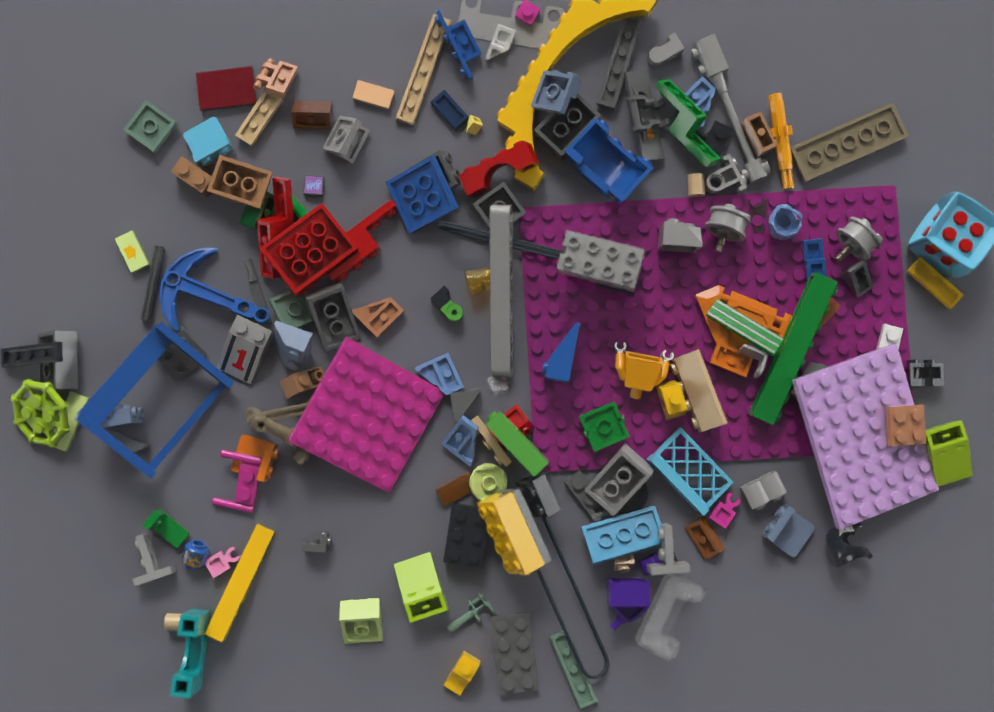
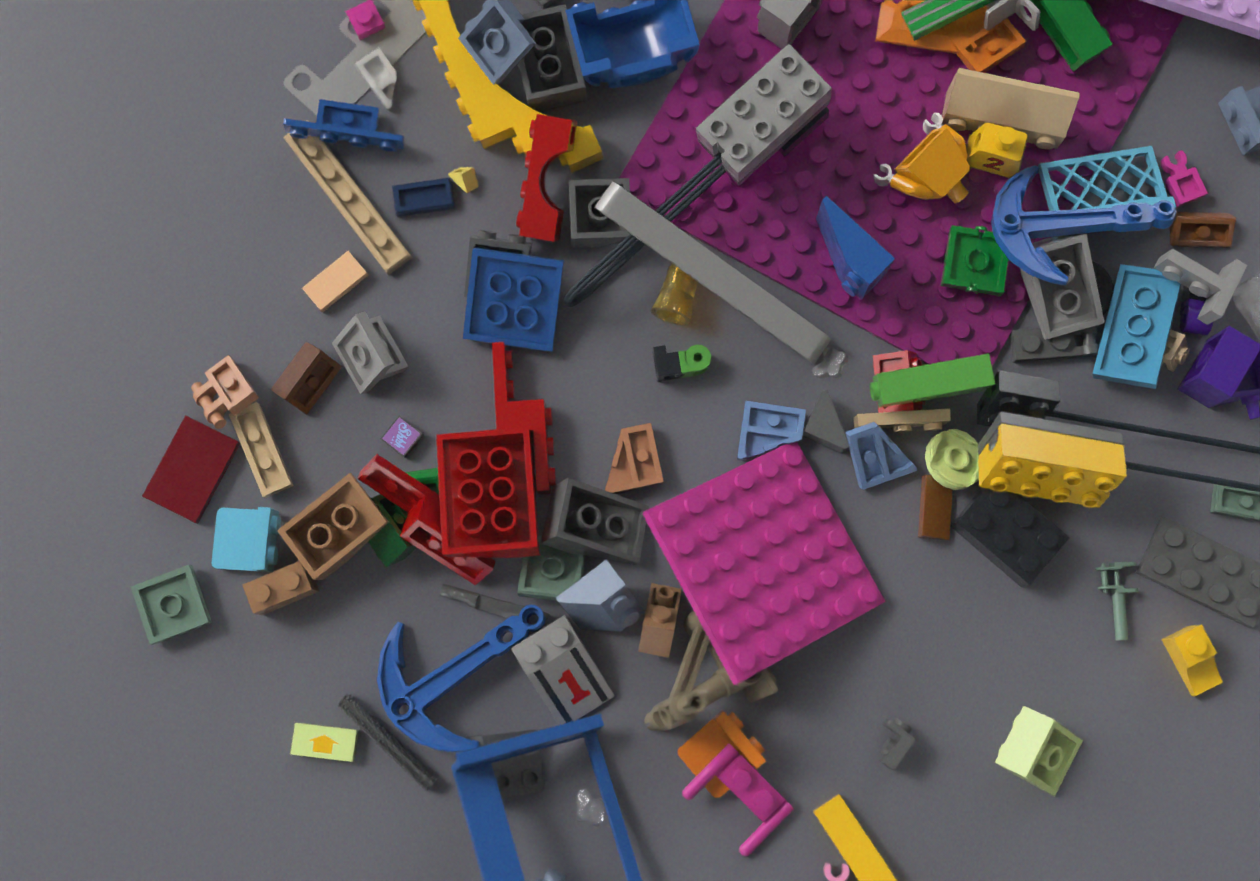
camera: 50 degrees left, 5 degrees down
(184, 408) = (589, 808): none -> clear piece
(420, 587) = (1043, 639): lime slope -> none
(623, 438) = (1015, 227): none -> blue piece
(763, 490) = (1185, 115): light grey brick -> none

